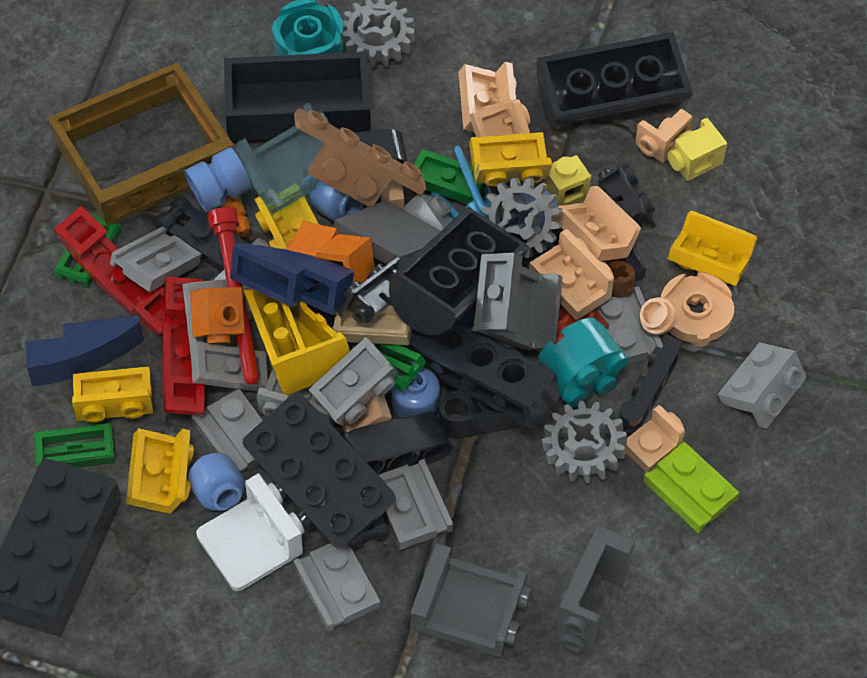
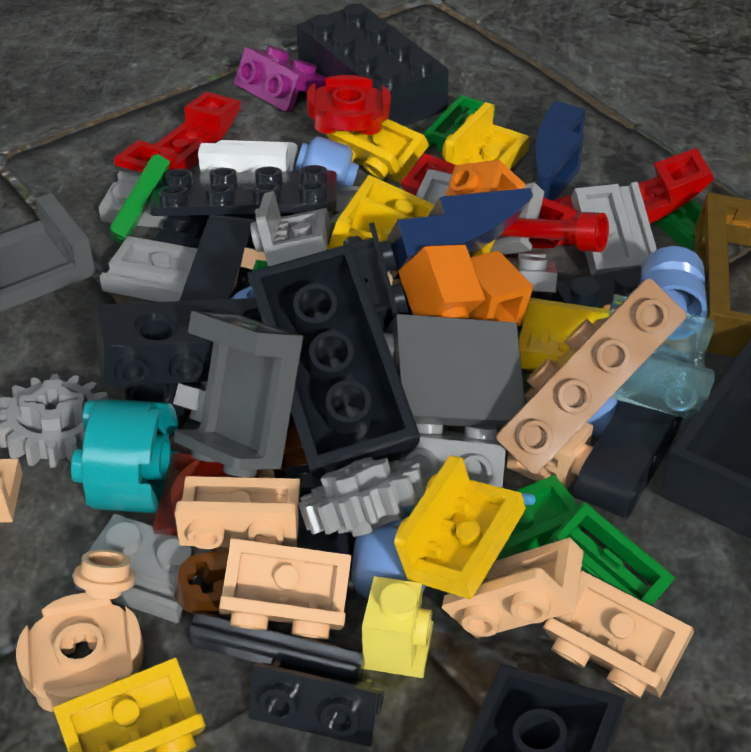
camera: 130 degrees right, 15 degrees down
(108, 616) = (276, 77): none -> magenta bracket
(157, 506) = (348, 105): none -> red plate
(259, 614) = (205, 122): none -> red slope
(371, 543) = (138, 199): none -> green tile
(441, 141) = (606, 565): none -> green tile
(649, 388) = (42, 516): black plate -> none

